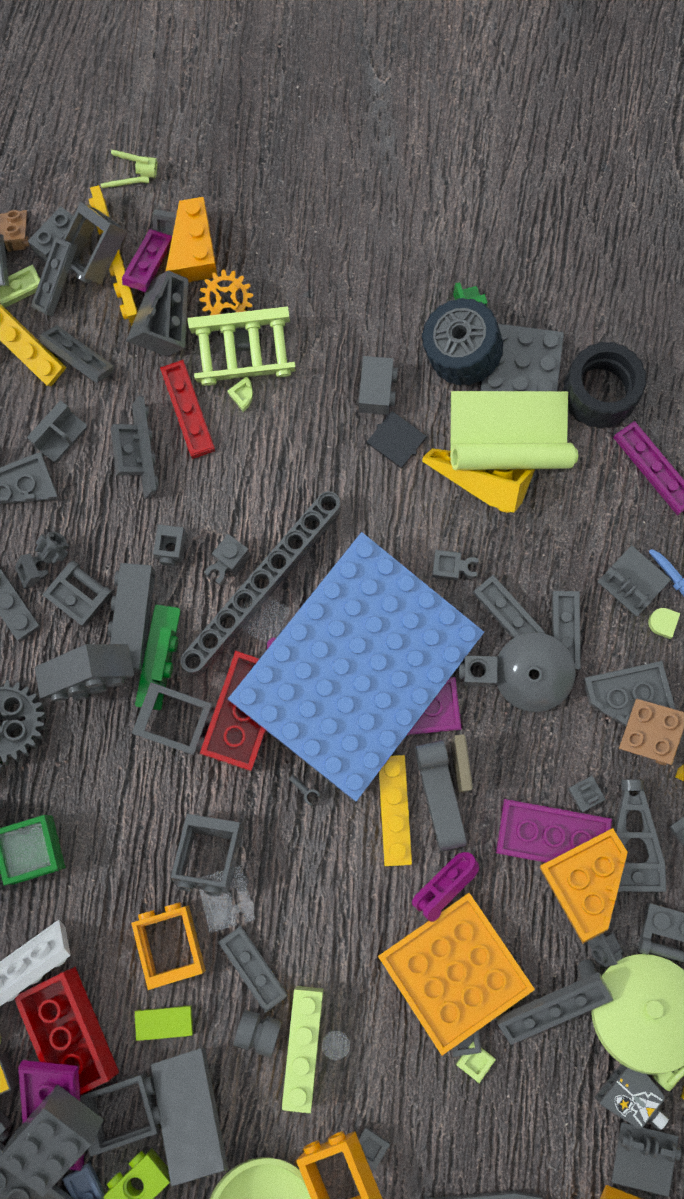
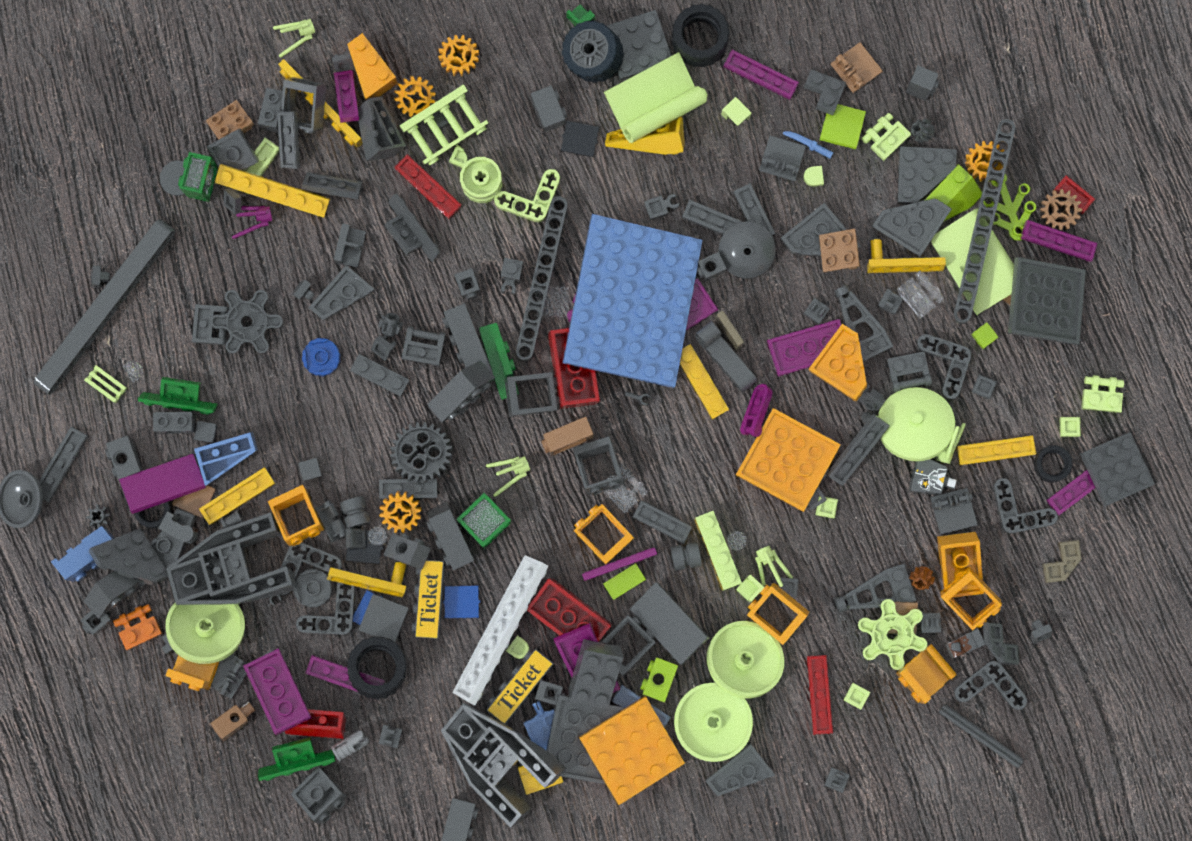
camera: 30 degrees left, 5 degrees up
(112, 802) = (518, 465): none -> yellowish green plant
(167, 997) = (619, 564): none -> magenta tile
(187, 795) = (567, 436): none -> medium nougat window
(251, 429) = (483, 169): none -> yellowish green wheel
(291, 272) = (452, 59): none -> light orange gear
(305, 489) = (536, 204): none -> yellowish green beam
(320, 1123) = (750, 588): none -> yellowish green panel
(363, 1087) = (767, 556): none -> yellowish green plant
(604, 496) = (736, 112): none -> yellowish green panel

